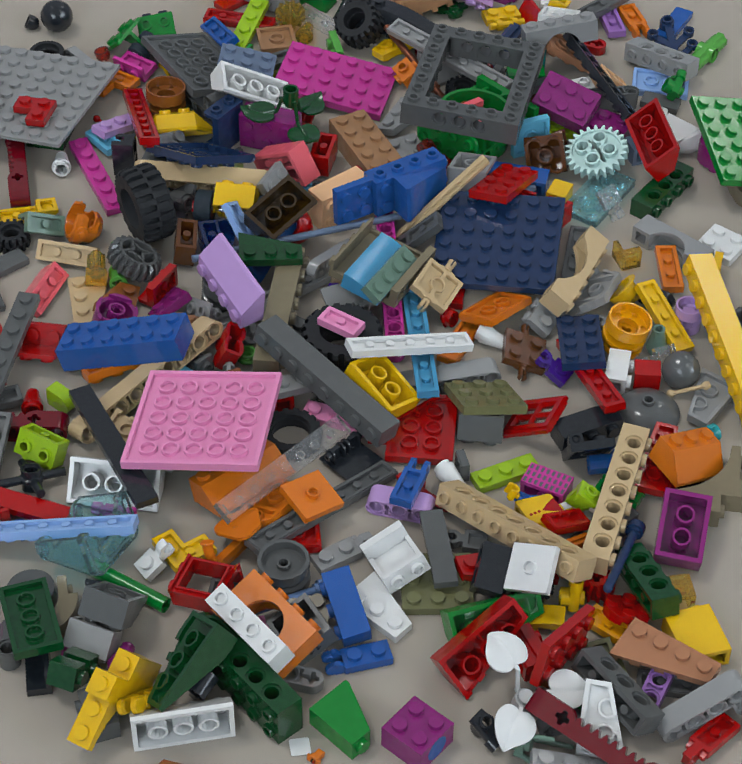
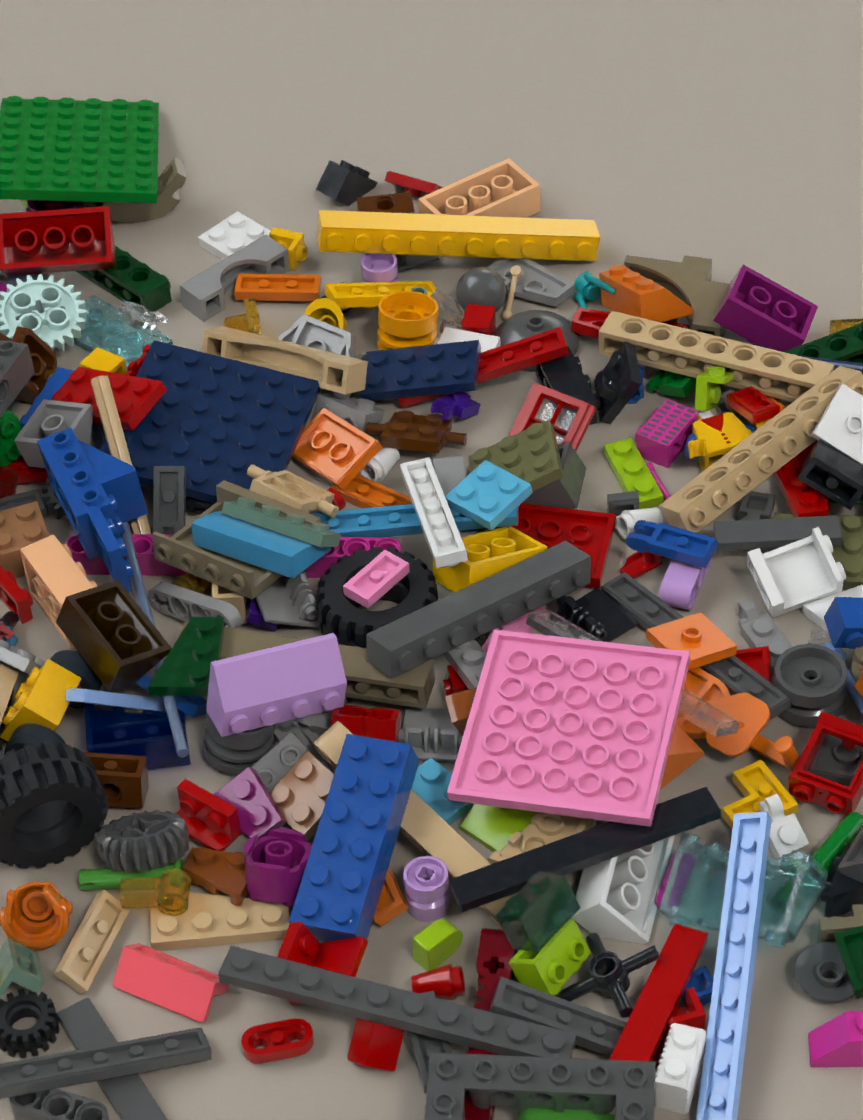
camera: 80 degrees left, 0 degrees up
(61, 425) = (537, 911): none -> clear green brick
(101, 380) = (427, 888): none -> lavender wheel
(434, 374) = (488, 495): none -> medium azure plate
(500, 487) = (661, 486): none -> dark pink hinge

